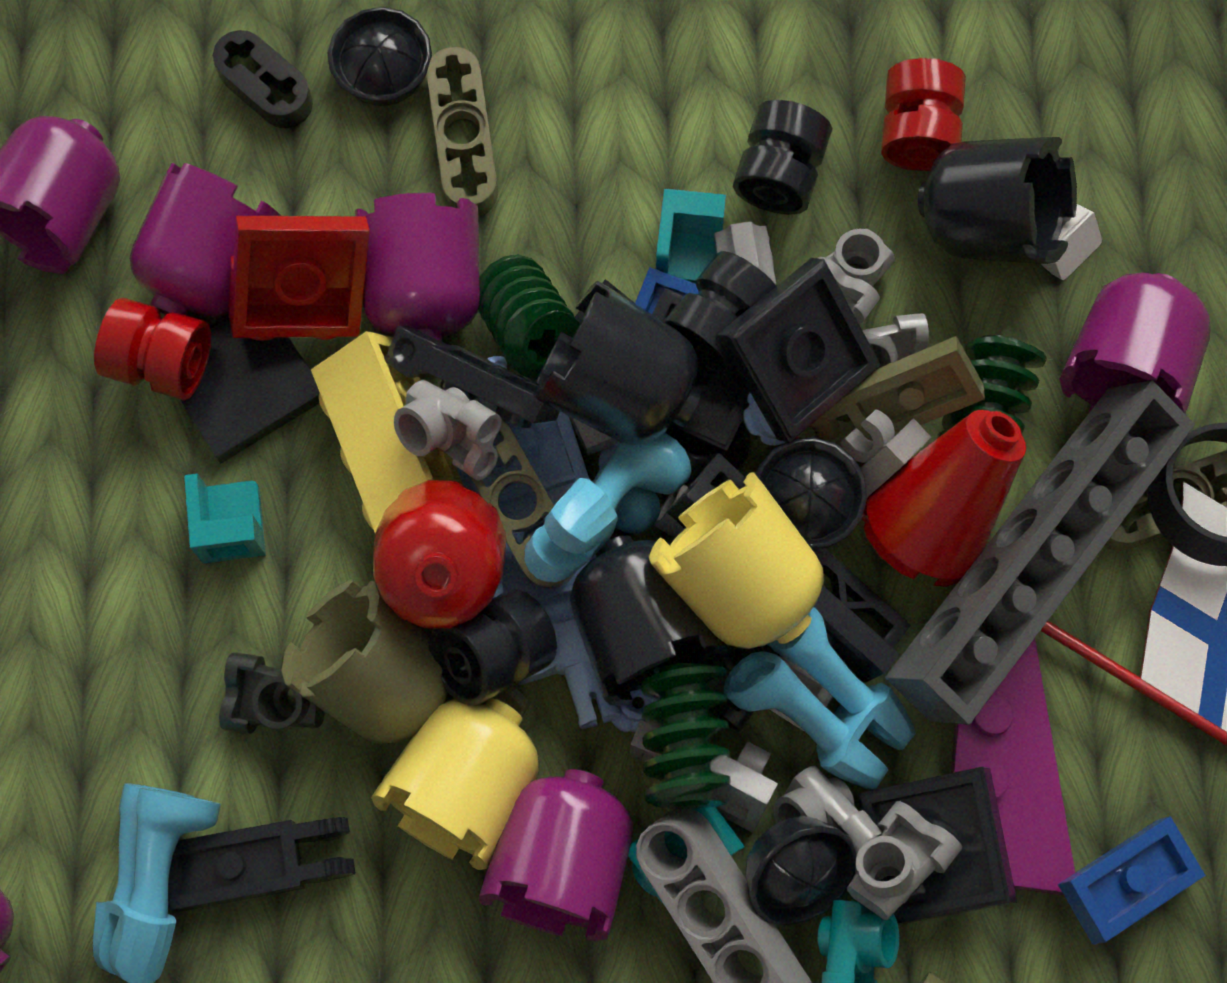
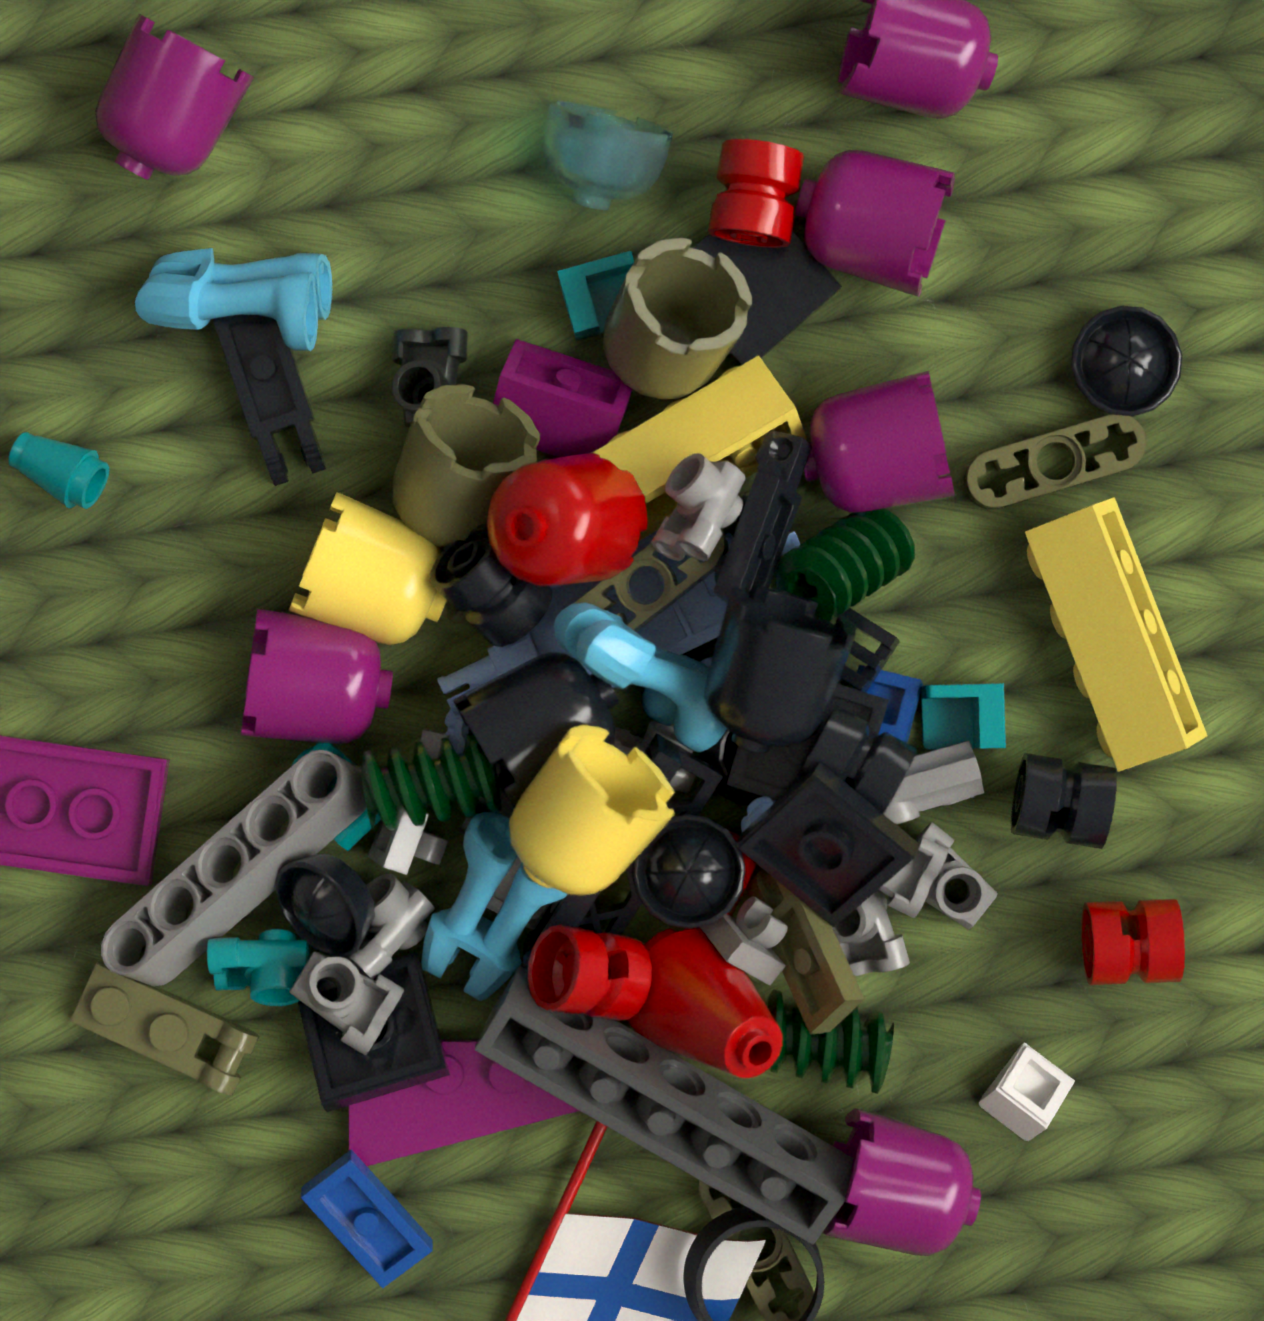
camera: 80 degrees right, 15 degrees up
(84, 491) = (603, 153): none -> clear light blue cylinder
(255, 88) = (1098, 249): black beam -> none
(260, 436) = (675, 319): none -> olive cylinder
(298, 276) = (842, 328): red plate -> none
(323, 553) = (567, 399): none -> magenta panel
(632, 91) = (1115, 635): none -> light yellow brick
(901, 602) = (589, 973): none -> red wheel
(1000, 199) = (1036, 1030): black cylinder -> none

